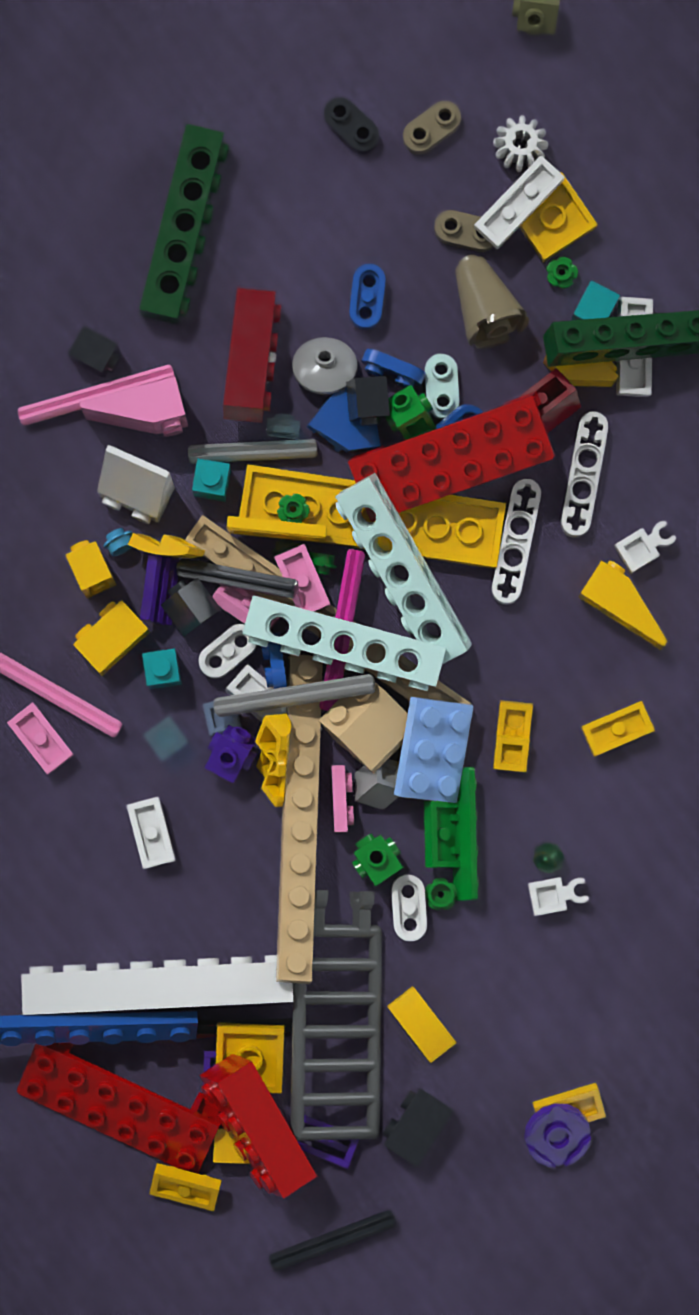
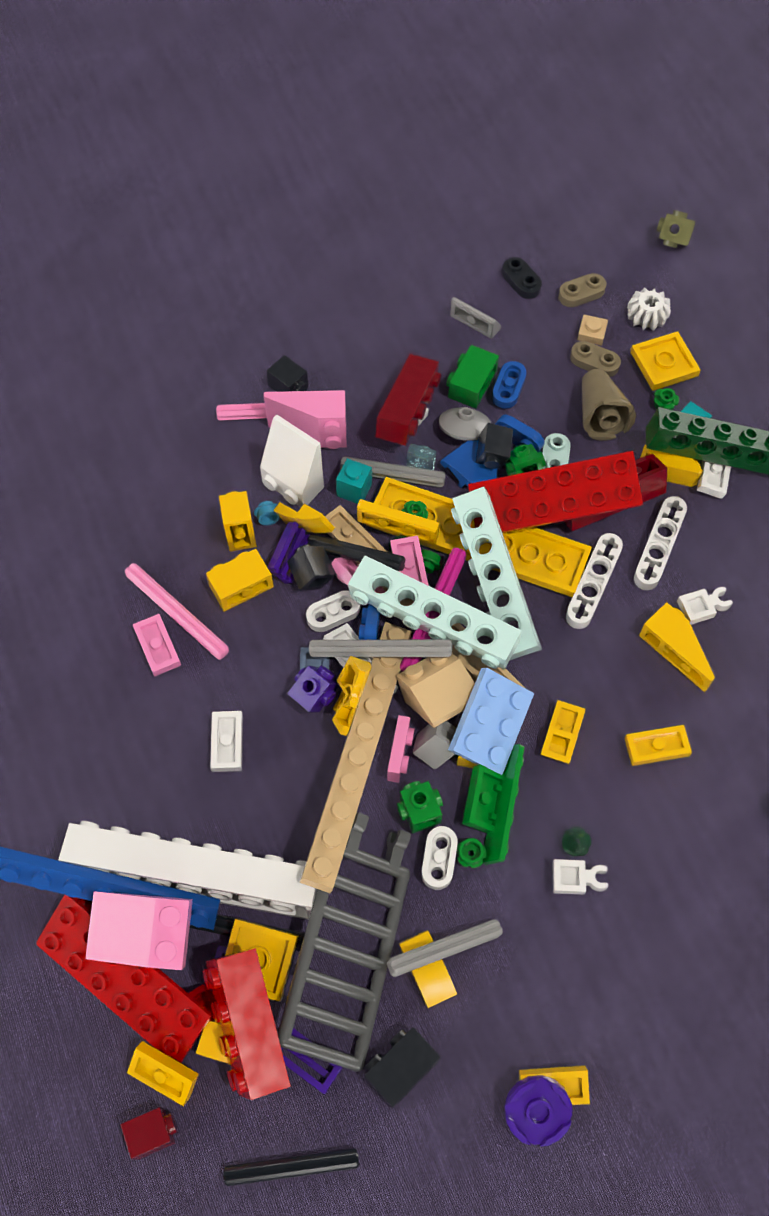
camera: 15 degrees right, 20 degrees down
(127, 1064) = (139, 930): none -> bright pink slope
(161, 668) = (274, 610): teal brick -> none
(166, 738) = (262, 667): clear light blue plate -> none
(189, 1243) = (149, 1133): none -> dark red brick
(195, 144) = (378, 312): dark green brick -> none
(305, 203) = (474, 318): none -> light grey slope
(320, 296) = (472, 376): none -> green brick
(435, 1002) = (444, 947): none -> light grey axle
(455, 187) = (592, 329): none -> tan plate
(519, 202) = (641, 340): white plate -> none

